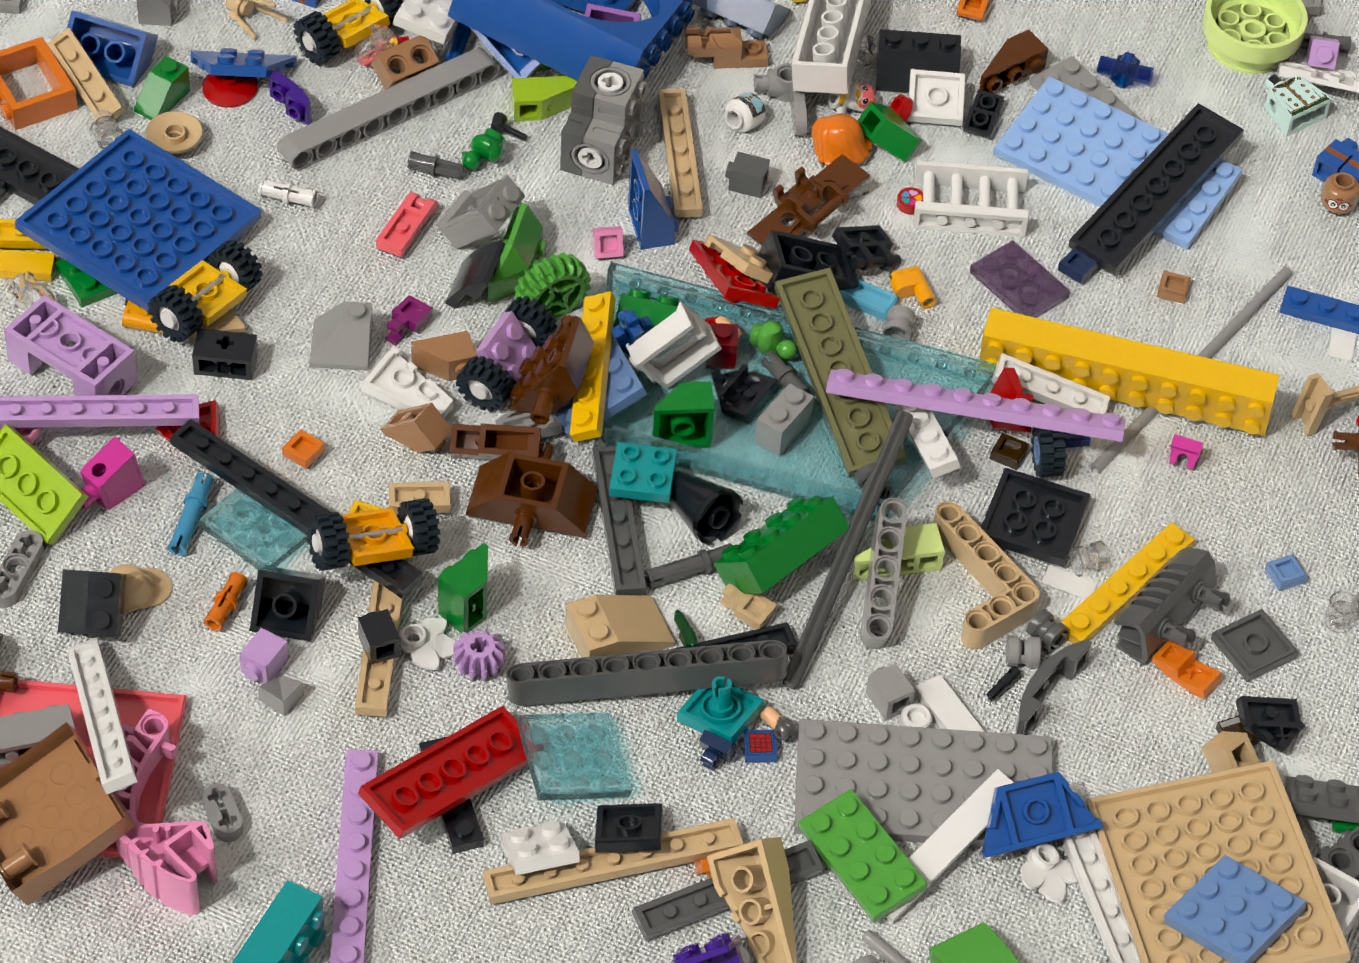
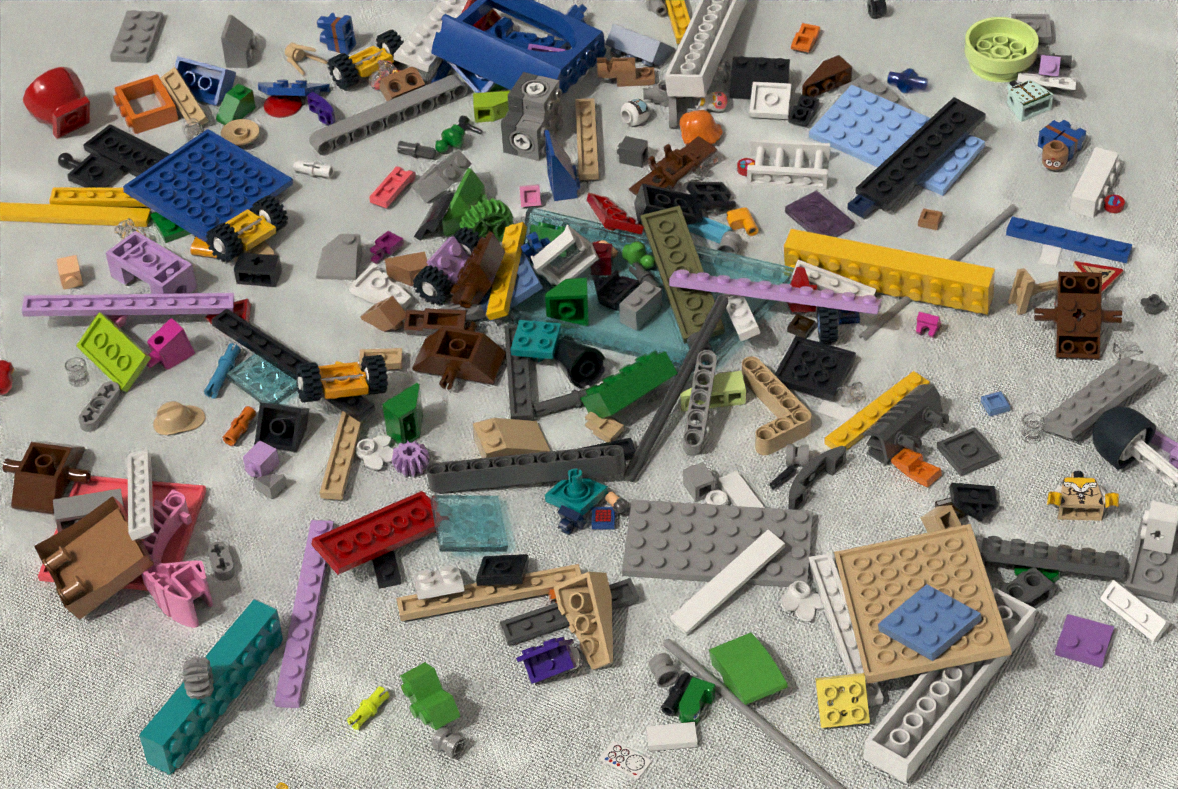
camera: 10 degrees right, 5 degrees down
(92, 602) = (147, 425): black slope -> none
(303, 449) = (304, 329): orange plate -> none
(379, 636) = (340, 445): black brick -> none
(687, 633) = (558, 444): dark green piece -> none
(742, 258) = (621, 203): tan wing -> none
(862, 855) = (667, 588): bright green plate -> none
(889, 131) = (734, 121): green slope -> none
(902, 106) = (744, 108): red tile -> none
(1035, 814) = (793, 559): blue wing -> none
(1050, 632) = (816, 441): dark grey wheel -> none

